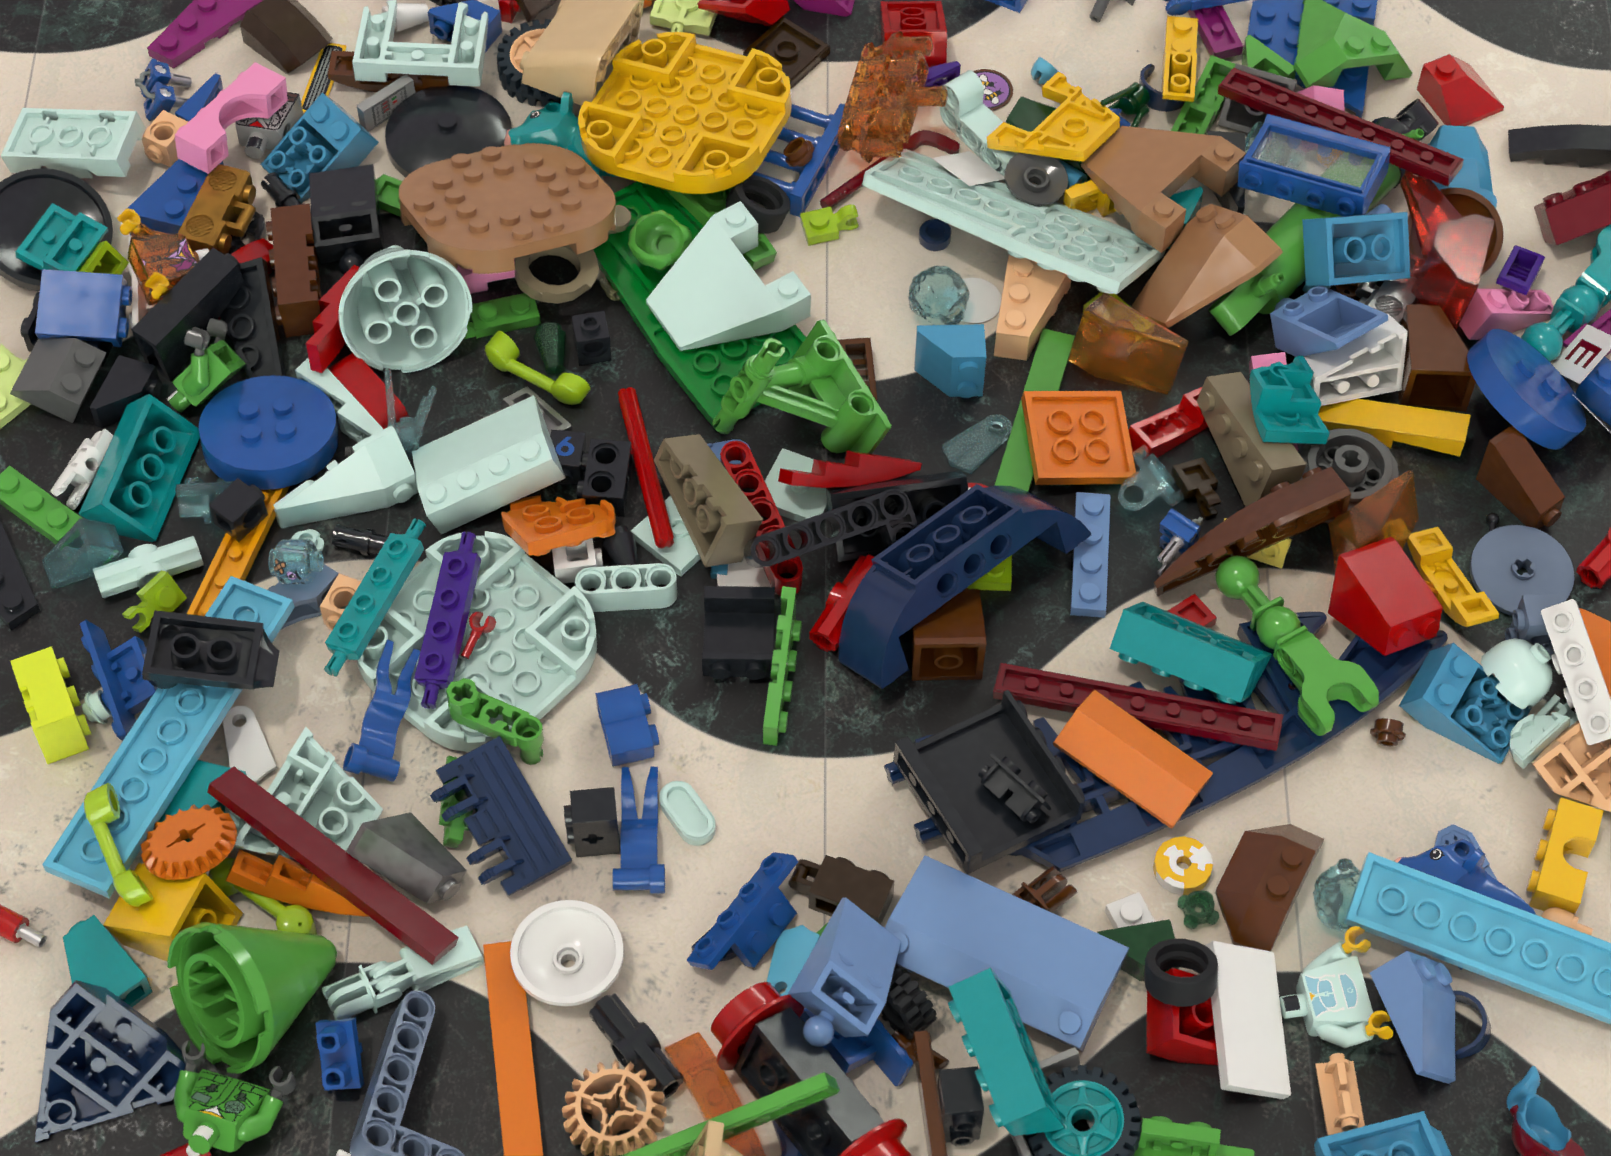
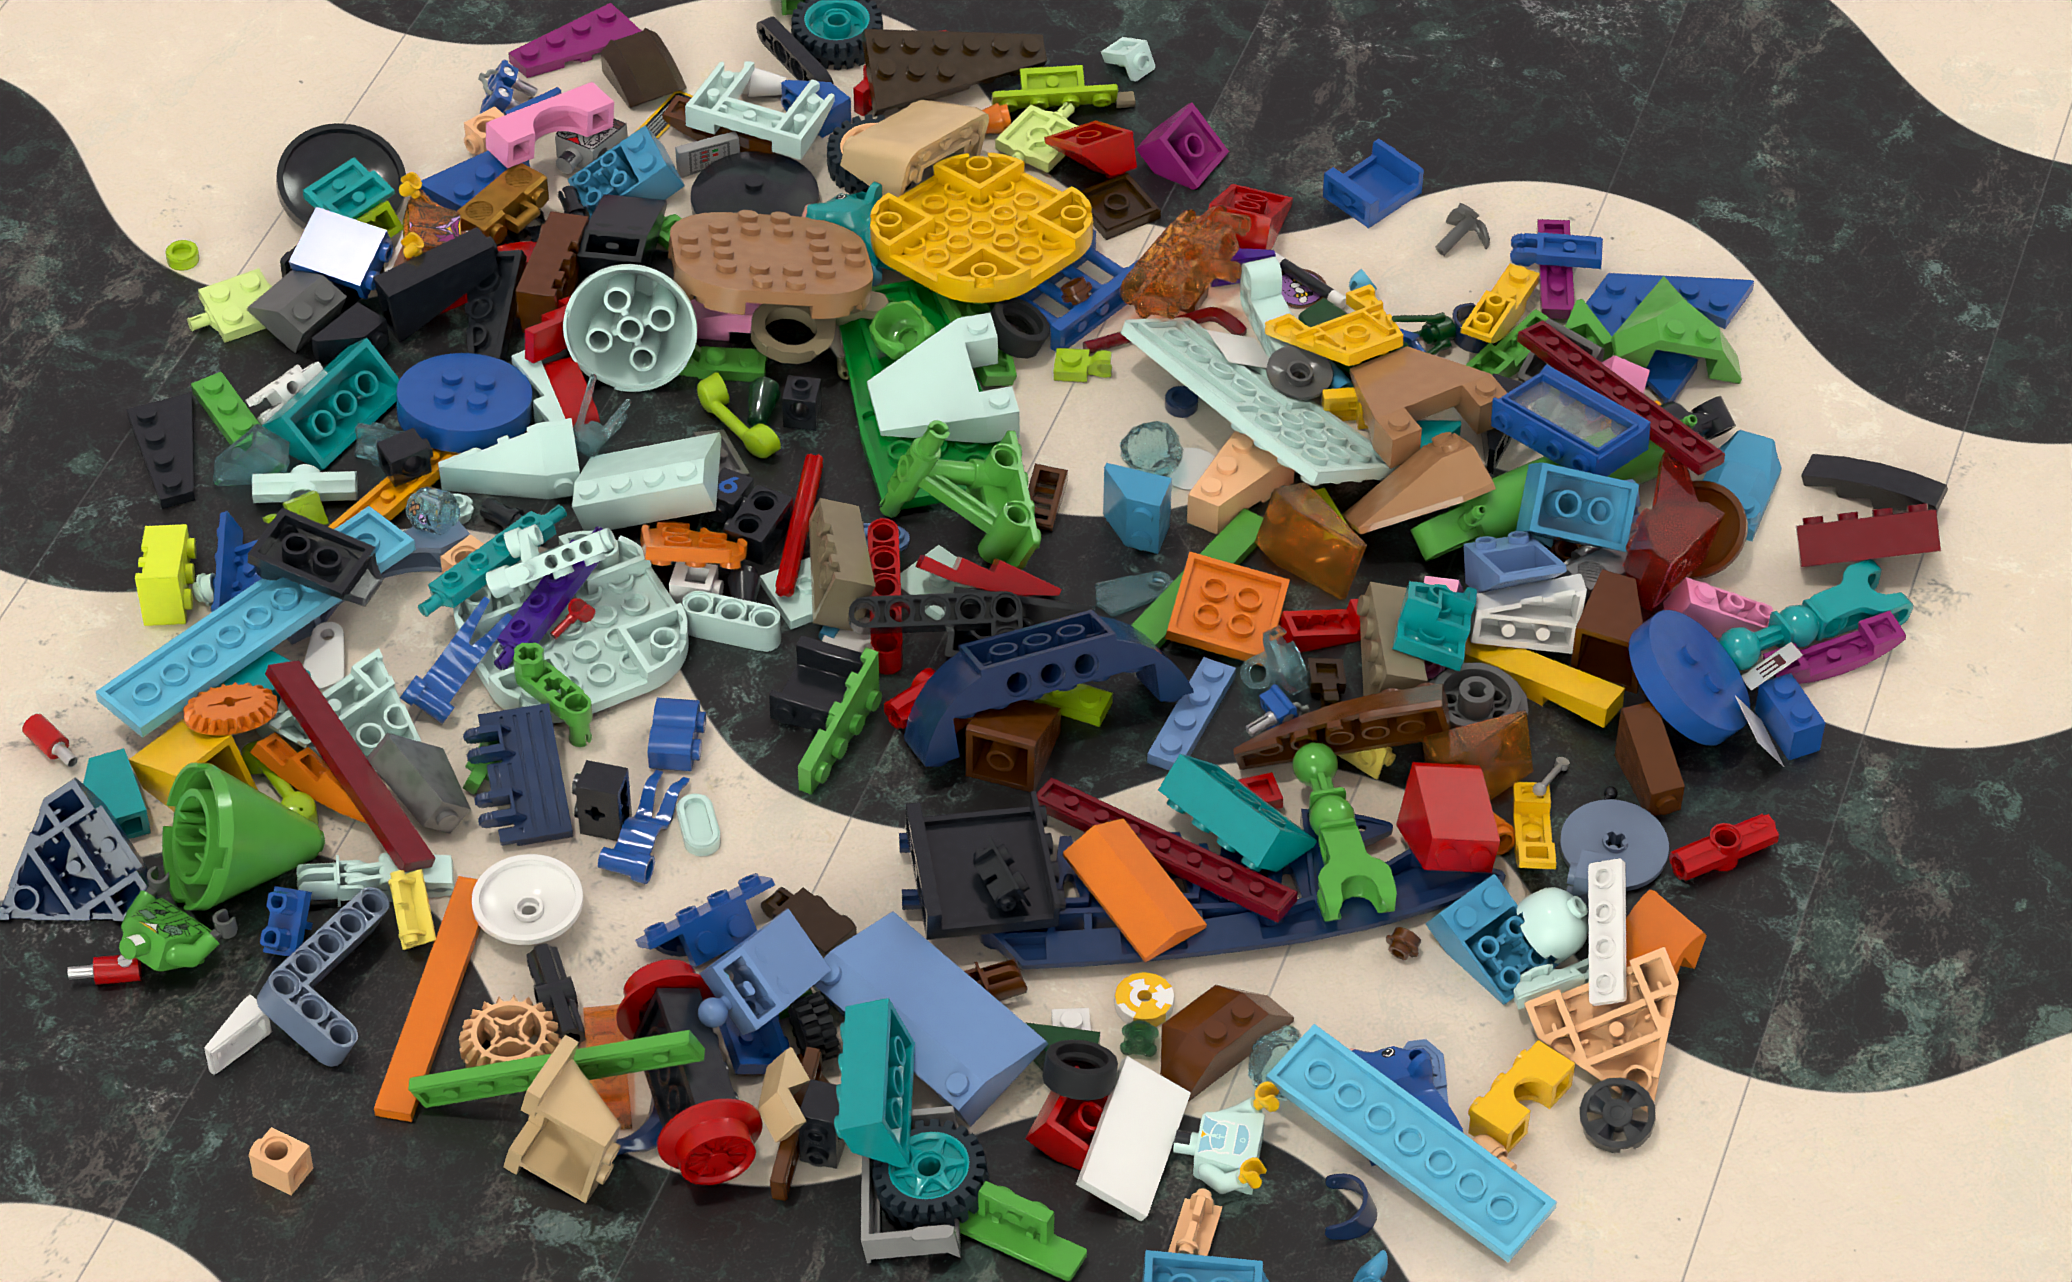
camera: 20 degrees right, 10 degrees down
(73, 141) = (401, 112): light aqua piece -> none
(102, 808) = (163, 657): lime piece -> none
(208, 368) = (430, 331): bright green torso -> none
(445, 585) = (557, 561): none -> light aqua piece
(457, 999) = (411, 908): none -> light yellow hinge
(911, 1081) = (776, 1103): none -> tan slope
(1001, 83) = (1311, 282): none -> black bar
(1422, 1012) = (1301, 1177): medium blue slope -> none
(1437, 503) = (1561, 764): none -> light grey hinge
(1456, 92) = (1778, 405): red slope -> none
(1520, 270) = (1751, 579): dark purple slope -> none

